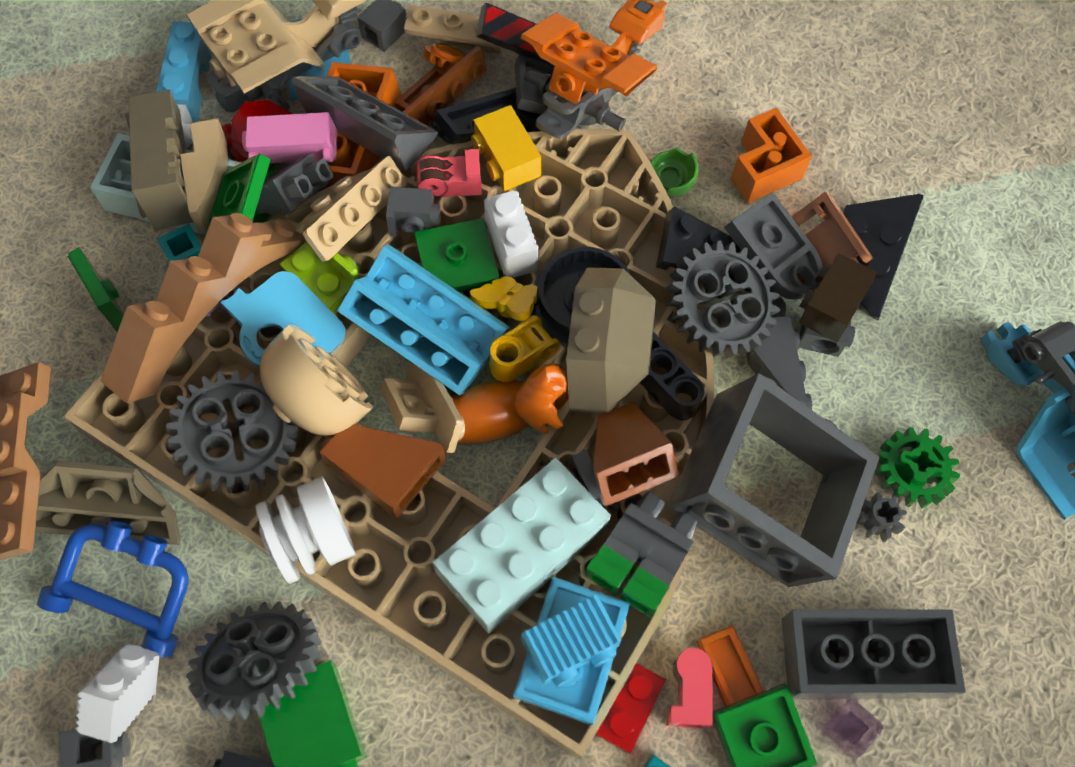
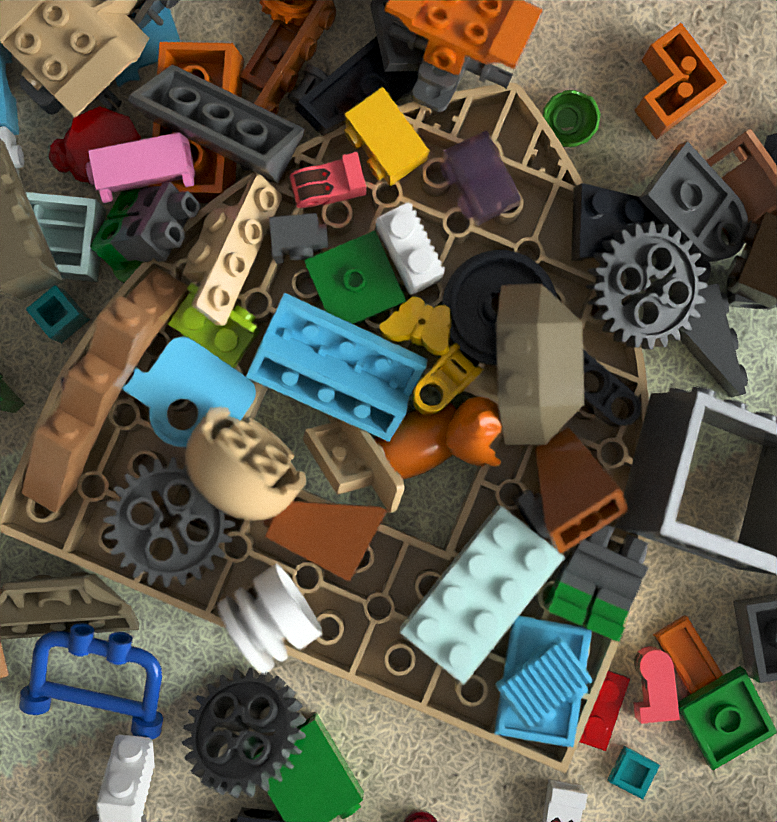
camera: 10 degrees left, 20 degrees up
(204, 169) = (58, 224): tan slope -> none
(241, 188) = (105, 255): green plate -> none
(584, 191) = (480, 178): none -> clear purple brick

